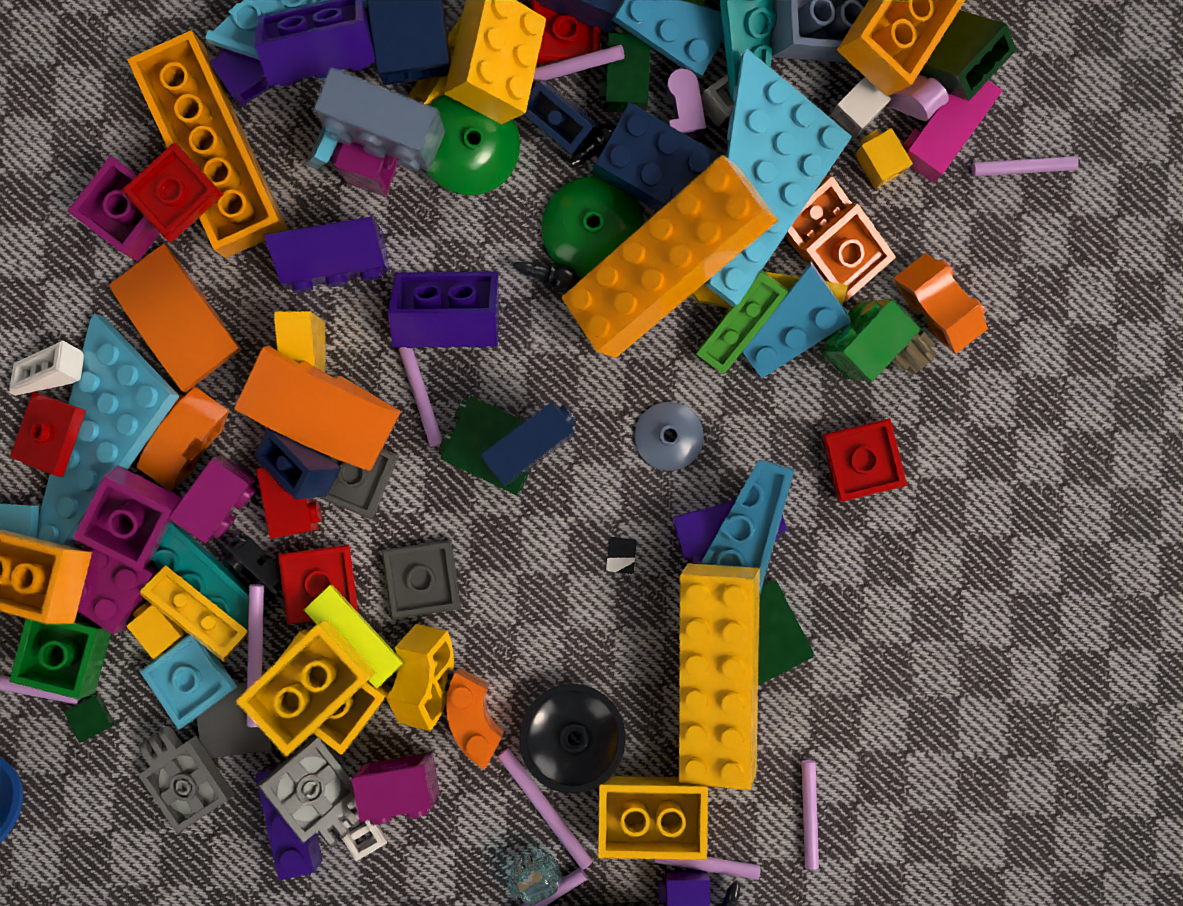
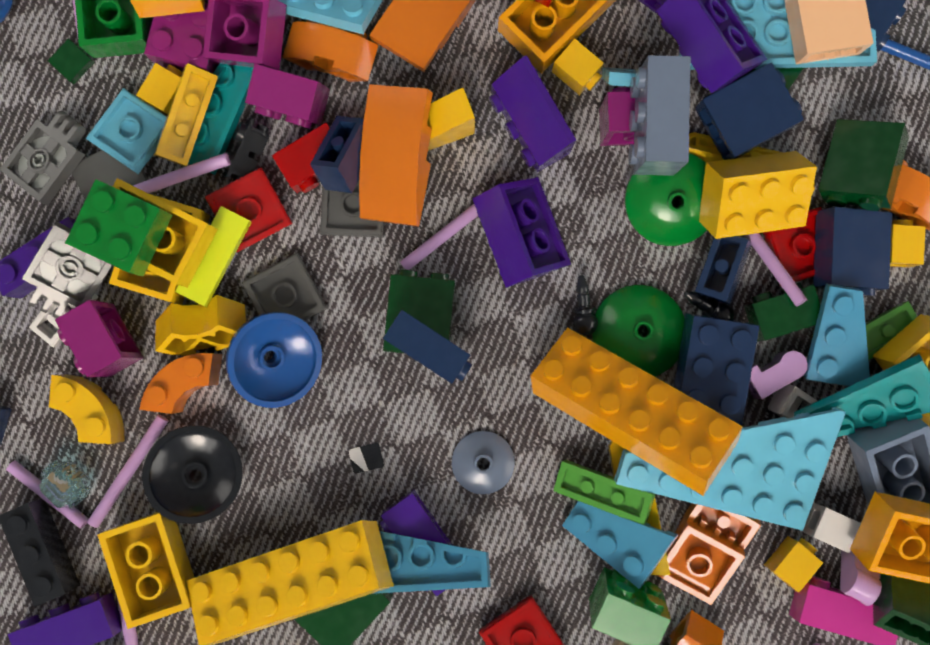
camera: 80 degrees right, 0 degrees up
(289, 713) = (118, 228): none -> green brick
(296, 189) = (578, 67): none -> yellow brick
(463, 825) = (89, 409): none -> yellow brick
(498, 597) = (290, 370): none -> blue dish

